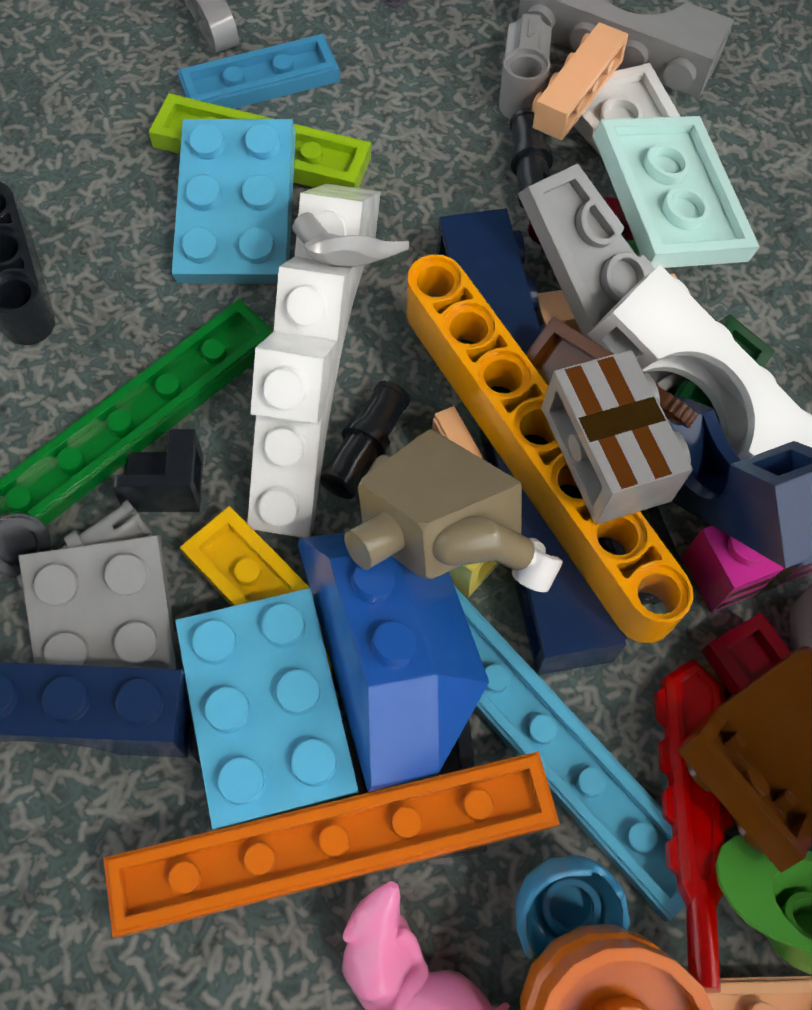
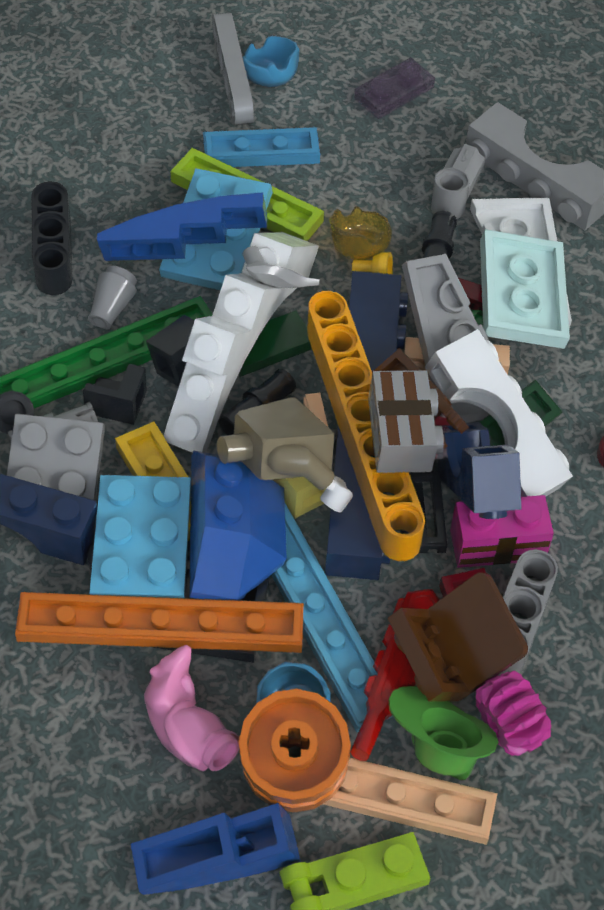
camera: 15 degrees right, 10 degrees down
(116, 325) = (112, 294): none -> light grey cone
(169, 216) = (168, 230): none -> blue slope
(225, 387) = (169, 347): none -> black brick
(371, 336) = (278, 341): none -> dark green tile
(427, 163) = (360, 233): none -> clear yellow hair
(465, 201) = (379, 264): none -> yellow piece
(579, 81) = (487, 200): light nougat piece -> none

